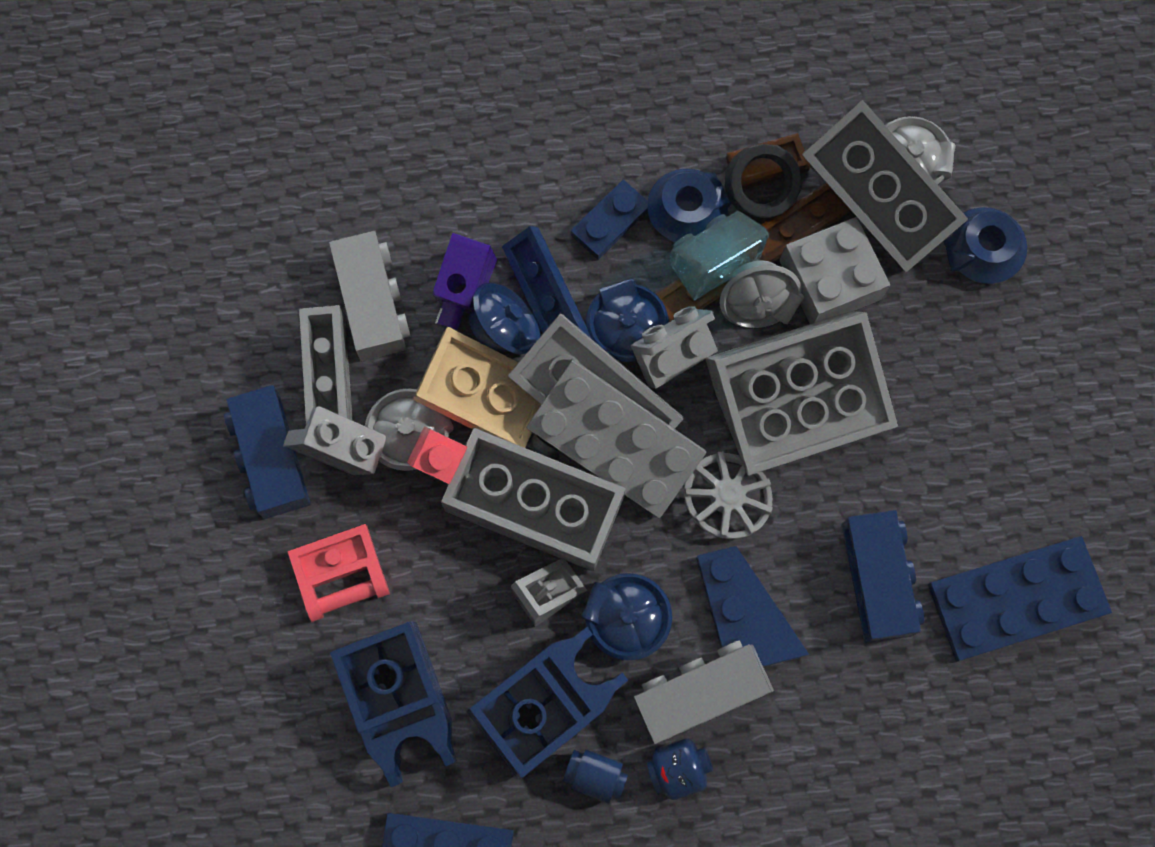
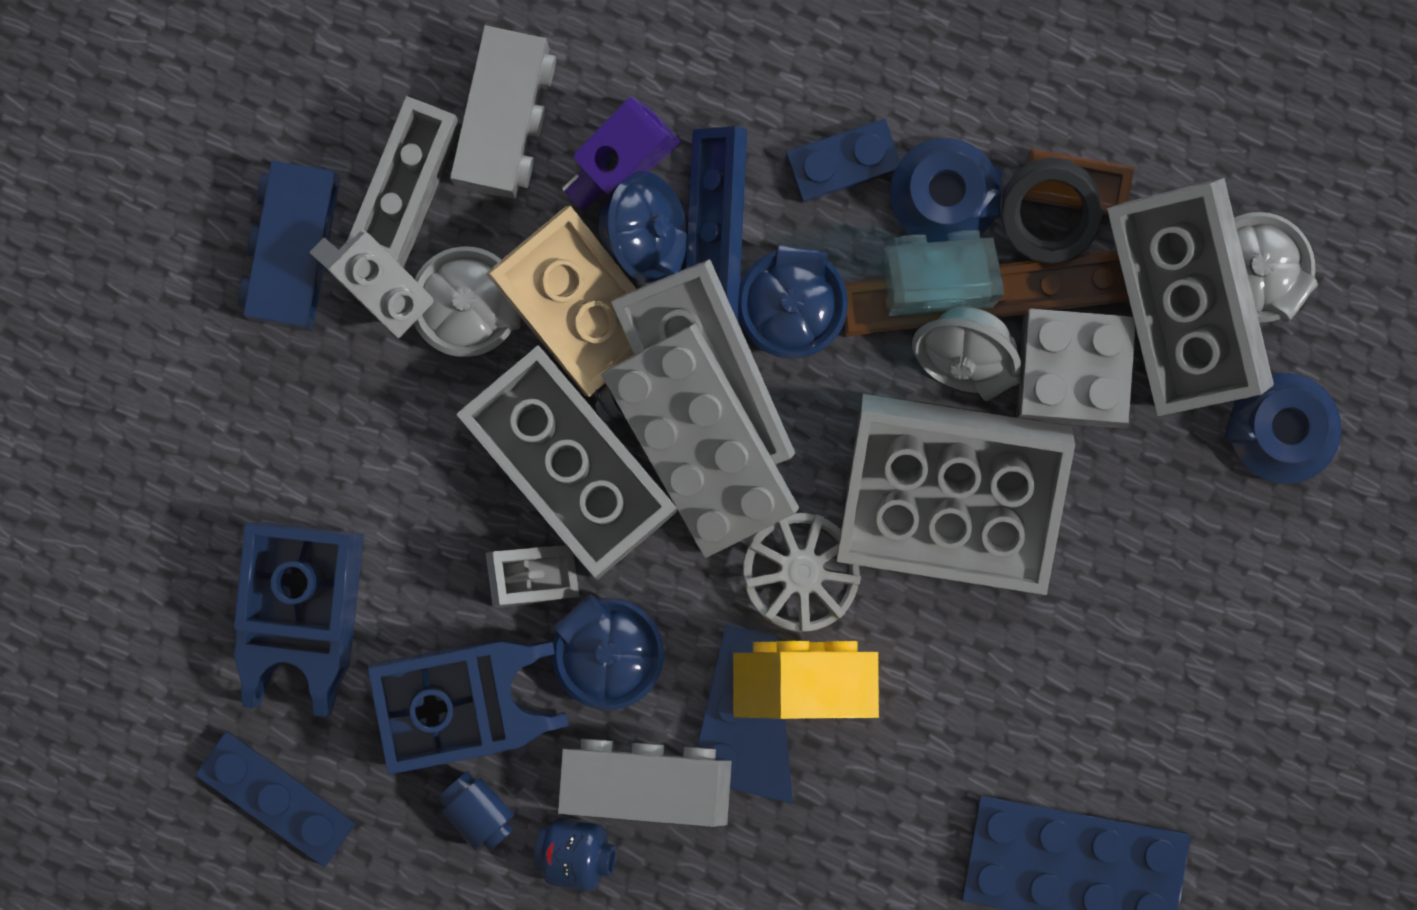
camera: 35 degrees right, 10 degrees up
(332, 560) = (308, 413): coral plate -> none
(437, 455) = (479, 355): coral brick -> none
(674, 347) = (832, 363): light grey bracket -> none
(776, 560) = (805, 681): none -> yellow brick
(882, 576) = (927, 760): dark blue brick -> none

